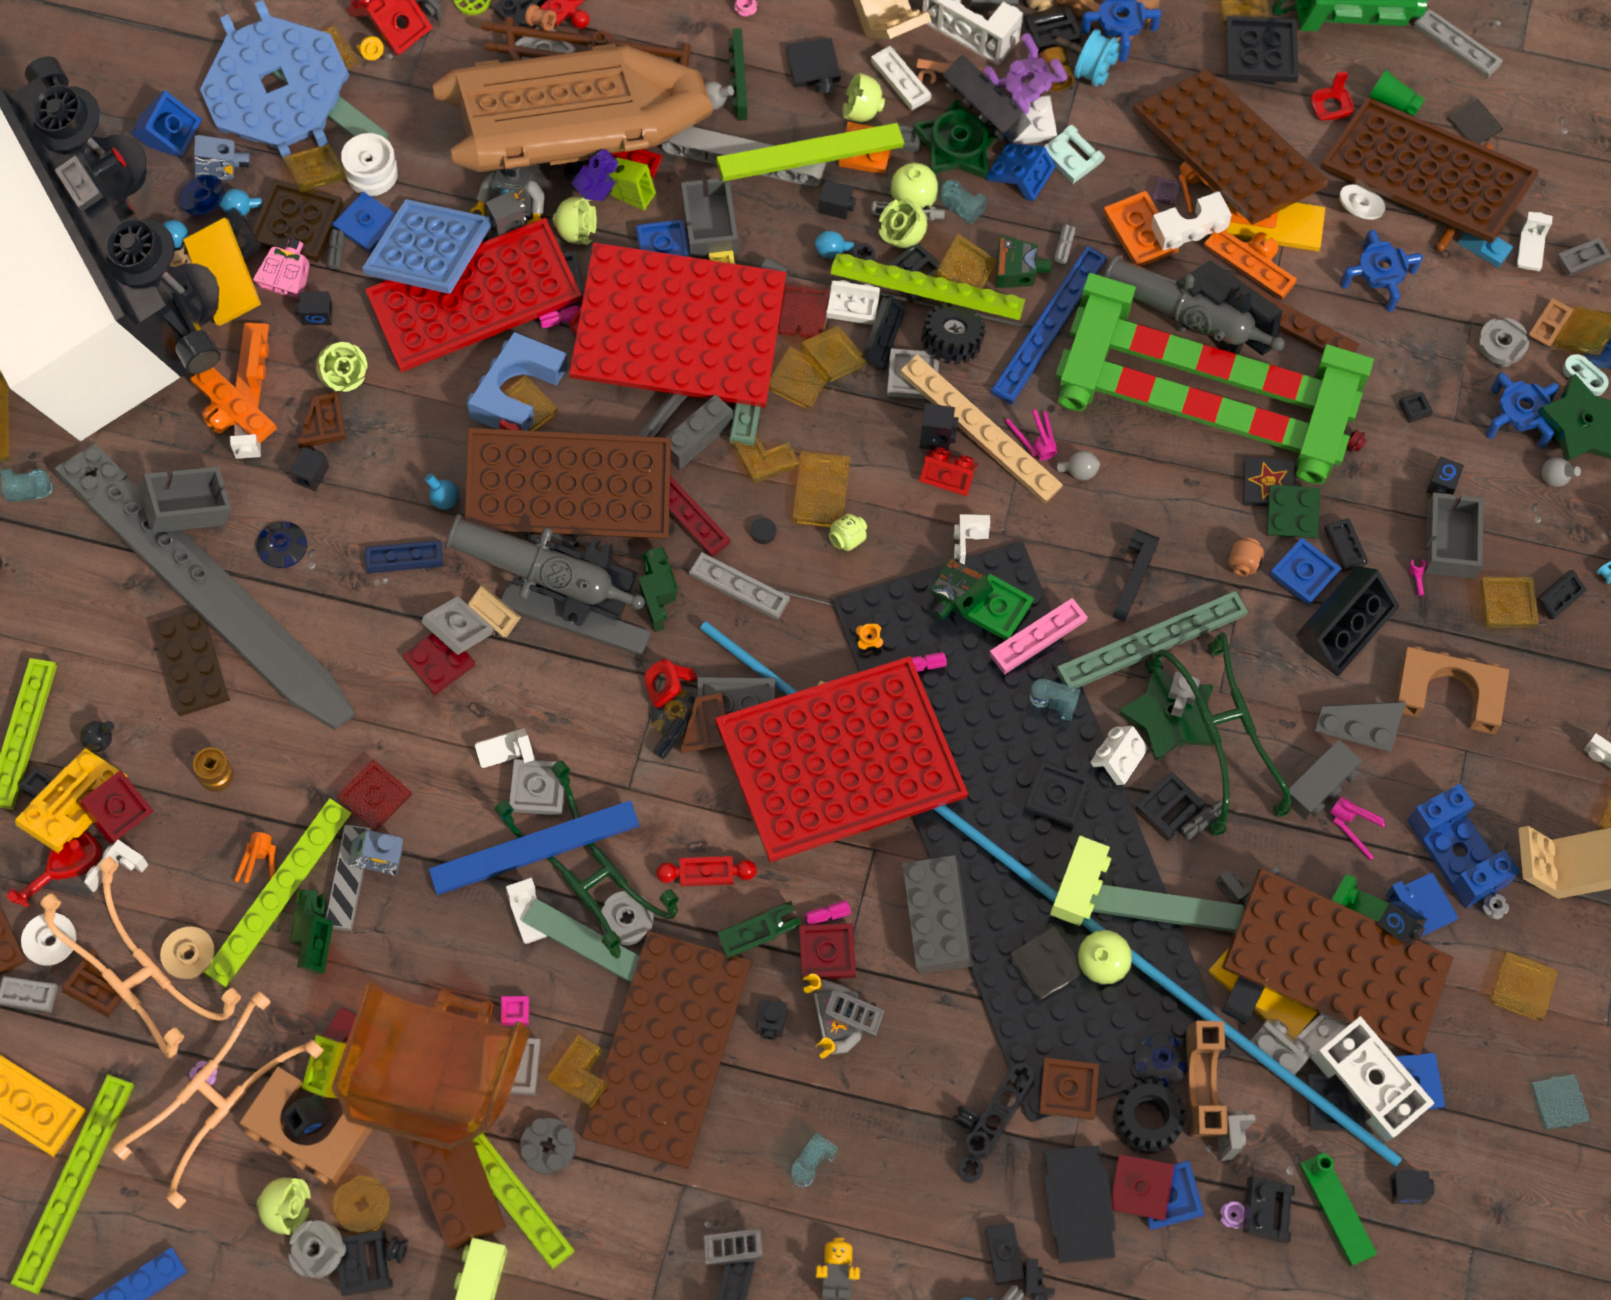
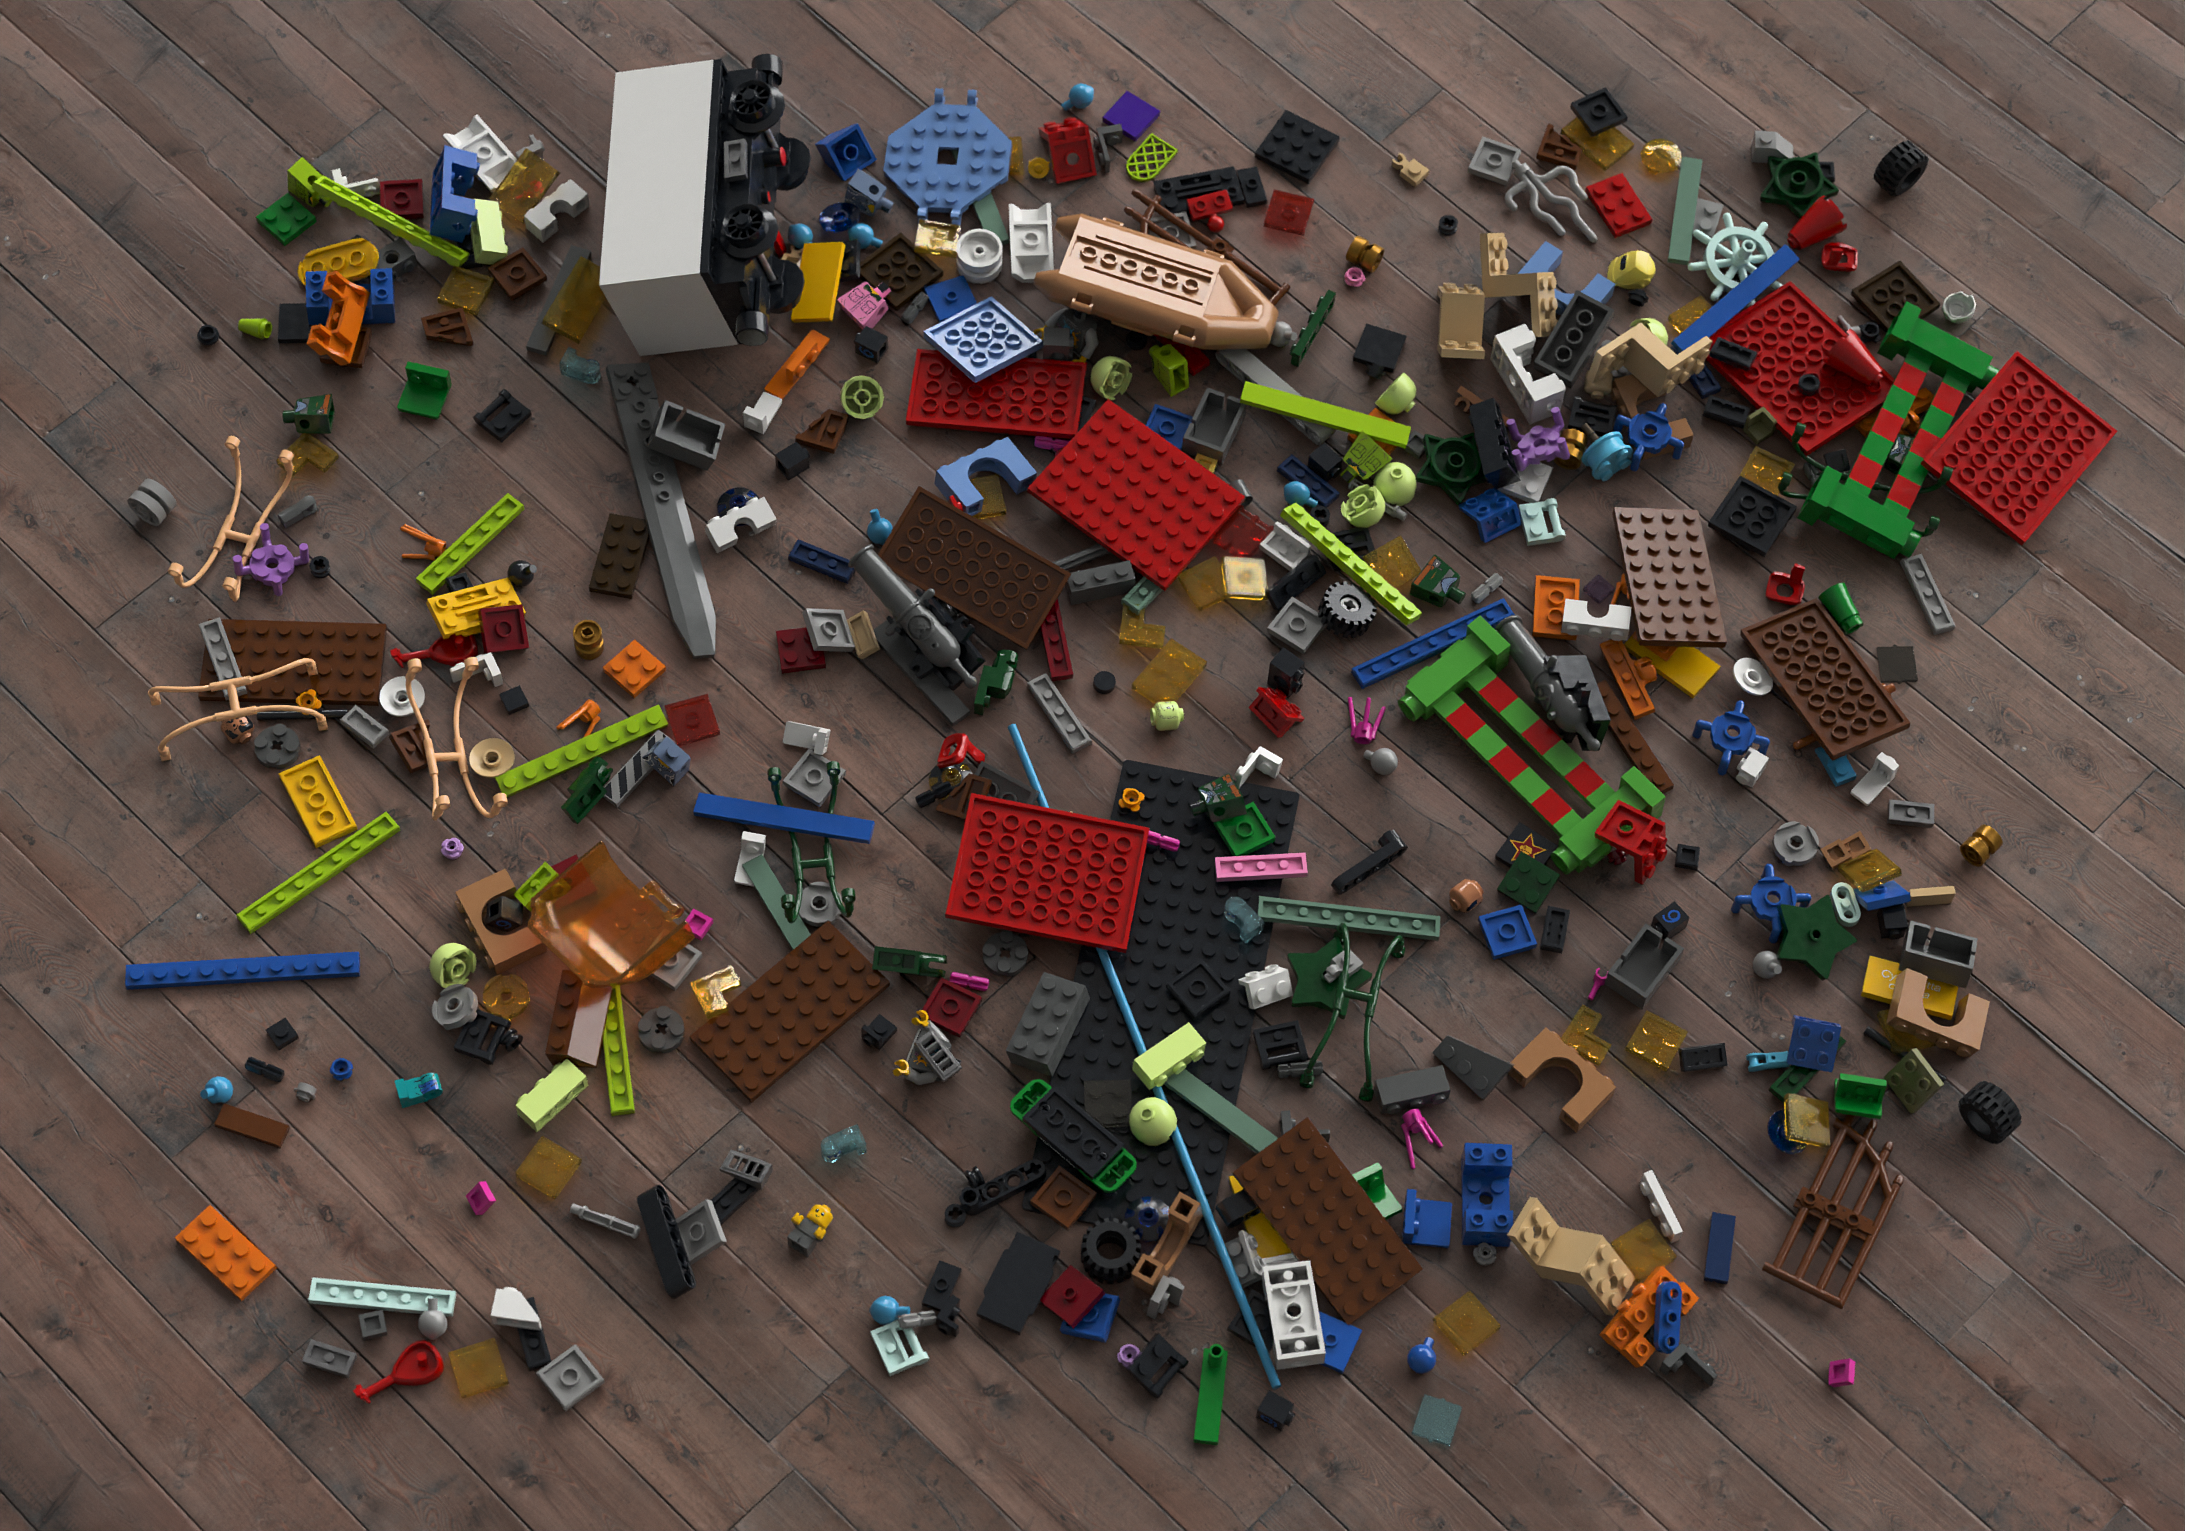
camera: 30 degrees right, 5 degrees down
(171, 876) = (514, 700): none -> black tile
(223, 1105) = (444, 850): light nougat bar -> none
(230, 406) = (762, 385): orange plate -> none
(278, 773) = (634, 668): none -> orange plate
(307, 544) = (755, 514): none -> white arch
(412, 126) = (1030, 242): none -> white piece
(540, 17) = (1180, 205): nougat bush -> none
(594, 179) = (1140, 351): dark purple brick -> none
(706, 871) = (898, 903): red plate -> none
(814, 223) = (1319, 489): none -> dark blue tile
(851, 877) = (1009, 942): none -> dark grey plate
(873, 175) = (1364, 458): none -> lime torso
(901, 78) = (1441, 394): white plate -> none
(962, 202) = (1425, 516): clear light blue leg -> none
(982, 430) = (1322, 694): tan plate -> none
(1040, 1017) = (1073, 1135): none -> black piece
(1348, 619) = (1516, 985): black slope -> none
(1379, 417) = (1644, 841): none -> red bracket
(1402, 922) = (1394, 1217): black brick -> none
(1417, 289) = (1751, 767): none -> white brick
(1439, 638) = (1581, 1036): none -> clear yellow plate
(1509, 1047) = (1422, 1357): none -> blue piece

